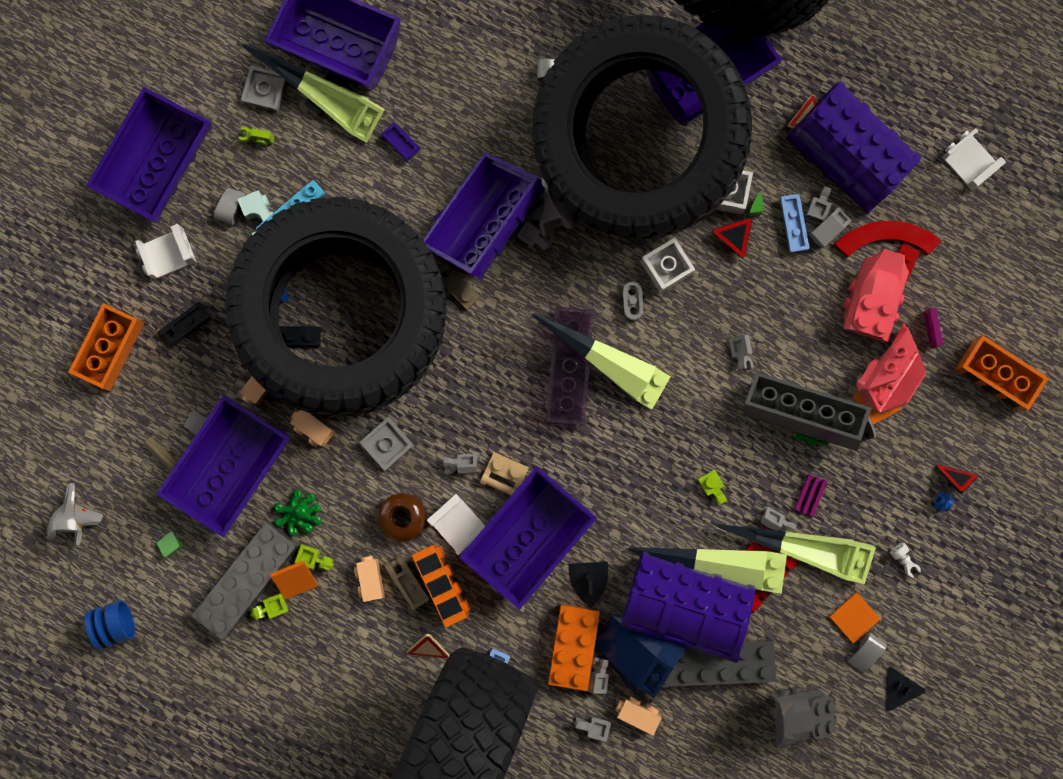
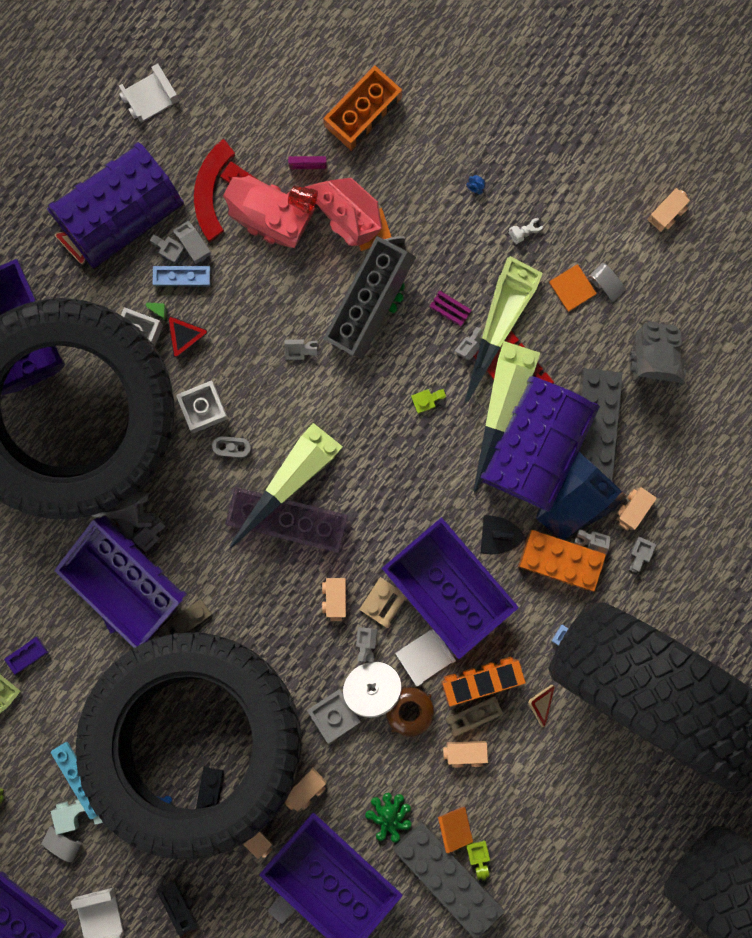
camera: 85 degrees left, 0 degrees up
(311, 557) = (435, 809): lime plate -> none
(404, 472) = (367, 702): none -> white piece
(501, 426) = (335, 598): none -> light nougat brick
(895, 327) = (303, 198): none -> clear red piece
(900, 689) = (645, 257): black piece -> none
(958, 479) = (456, 167): black piece -> none
(961, 710) = (672, 206): none -> light nougat brick

